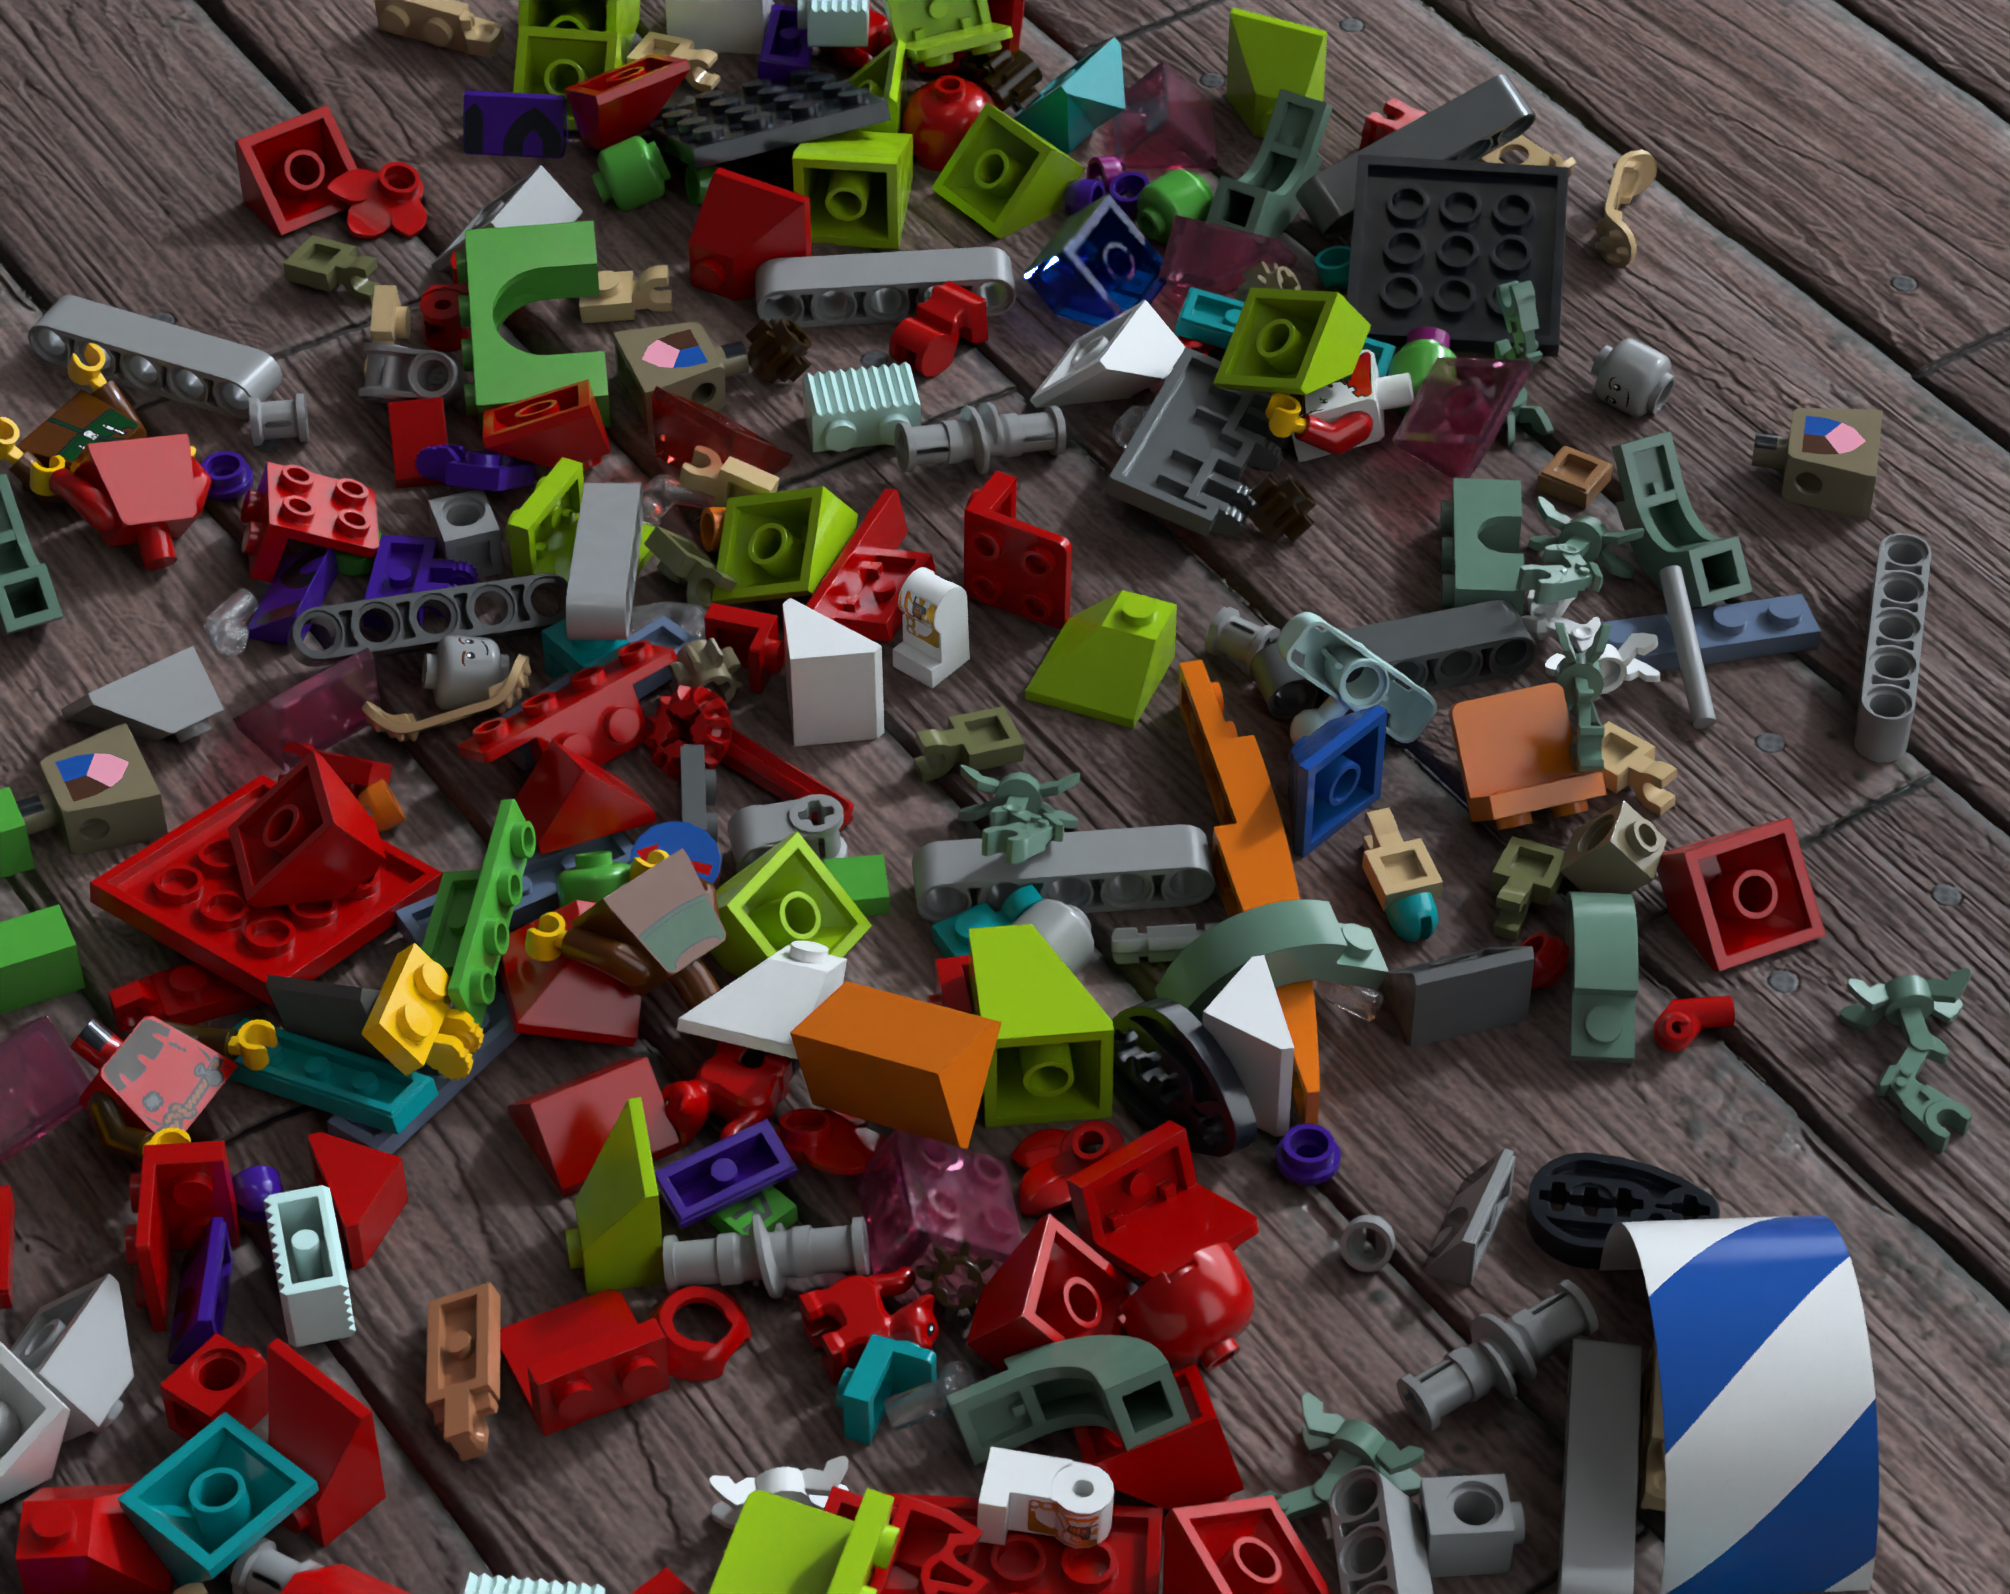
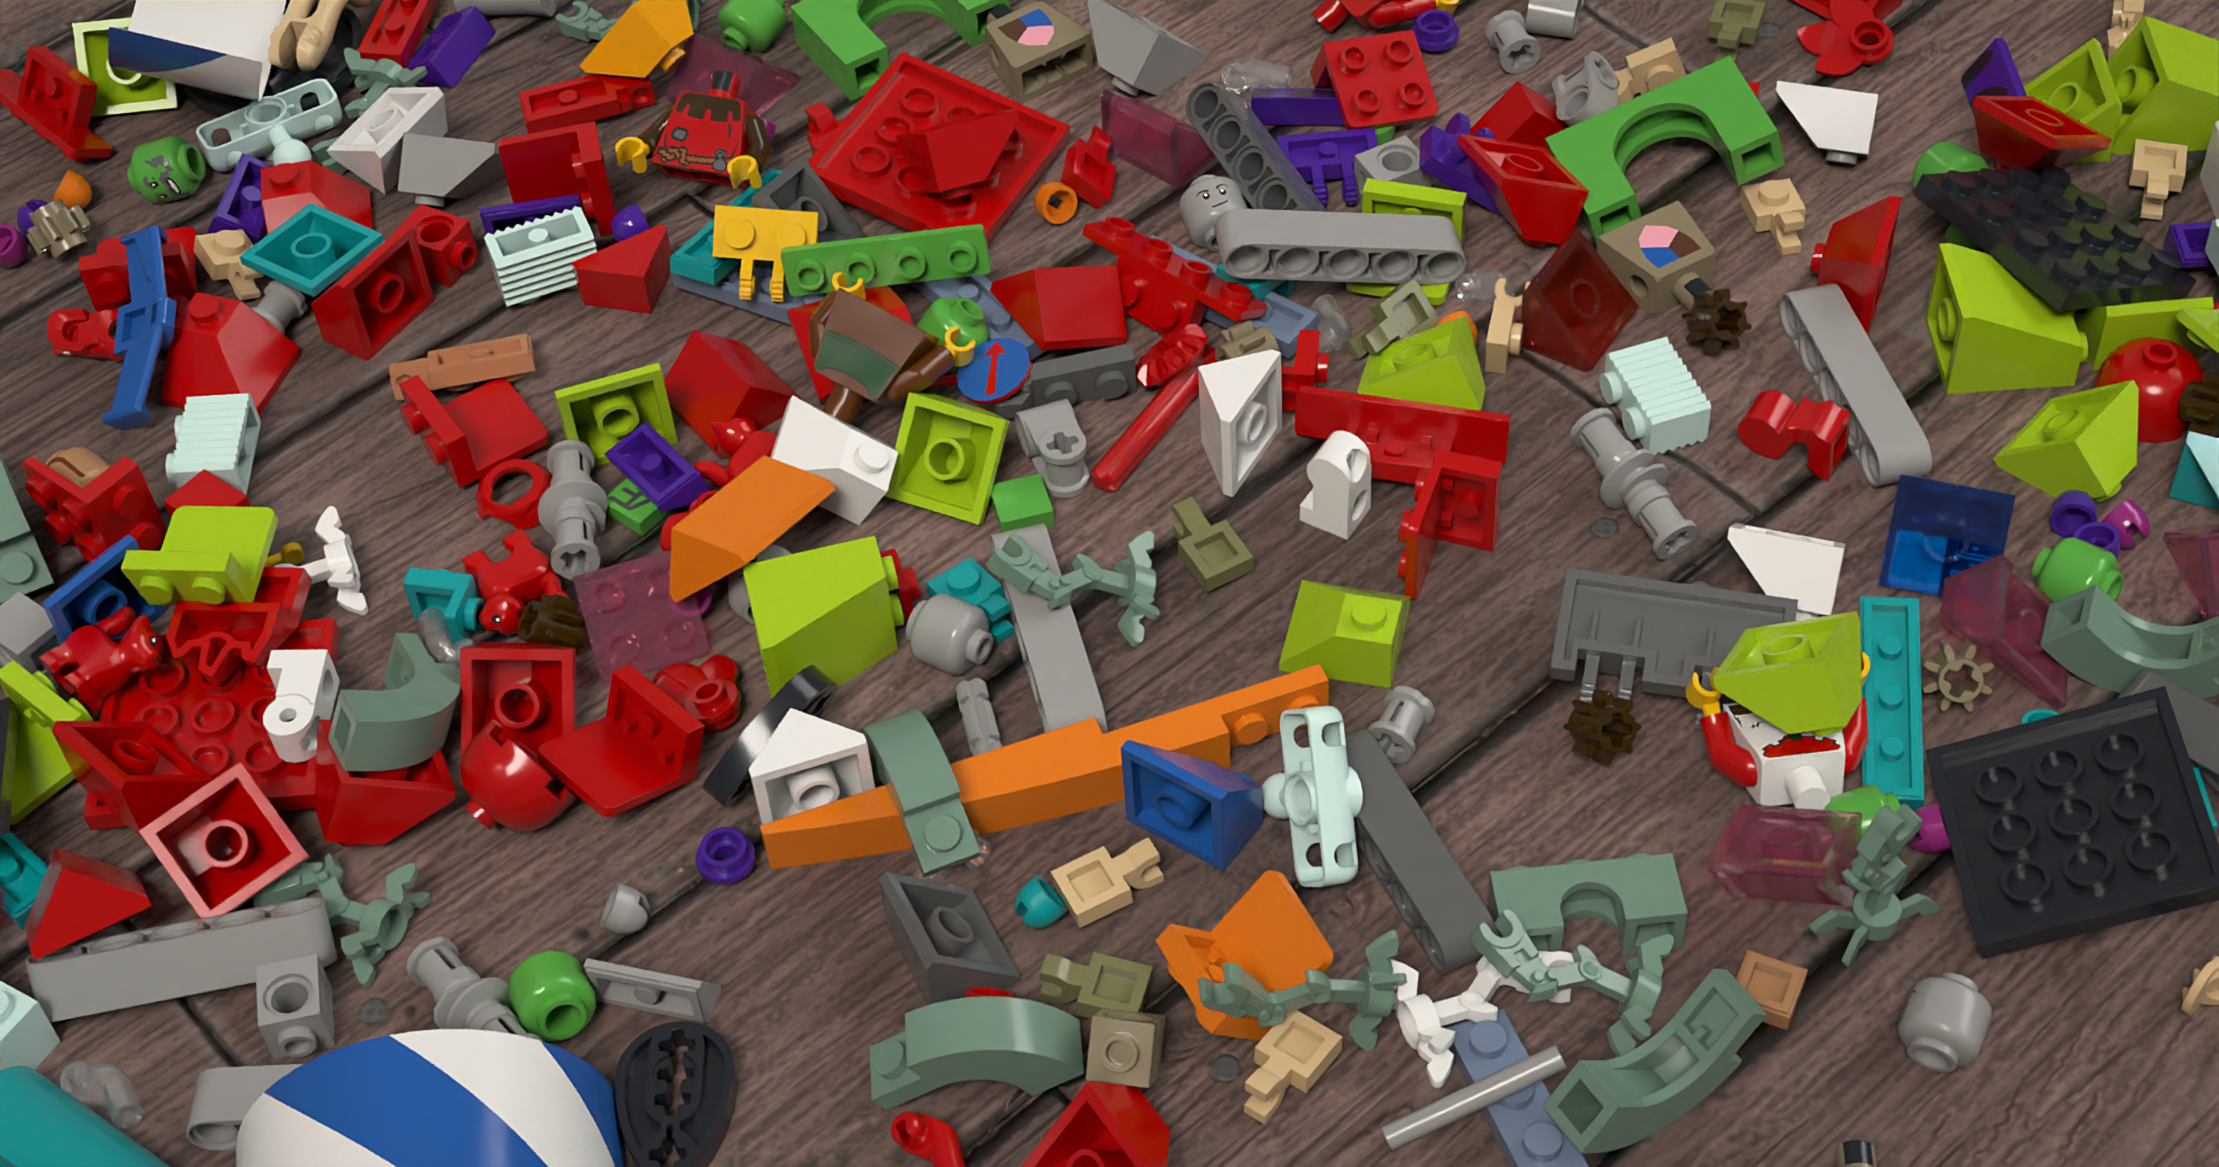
camera: 85 degrees right, 5 degrees up
(501, 696) = (1152, 189): tan piece -> none
(1481, 1284) = (552, 995): none -> bright green head

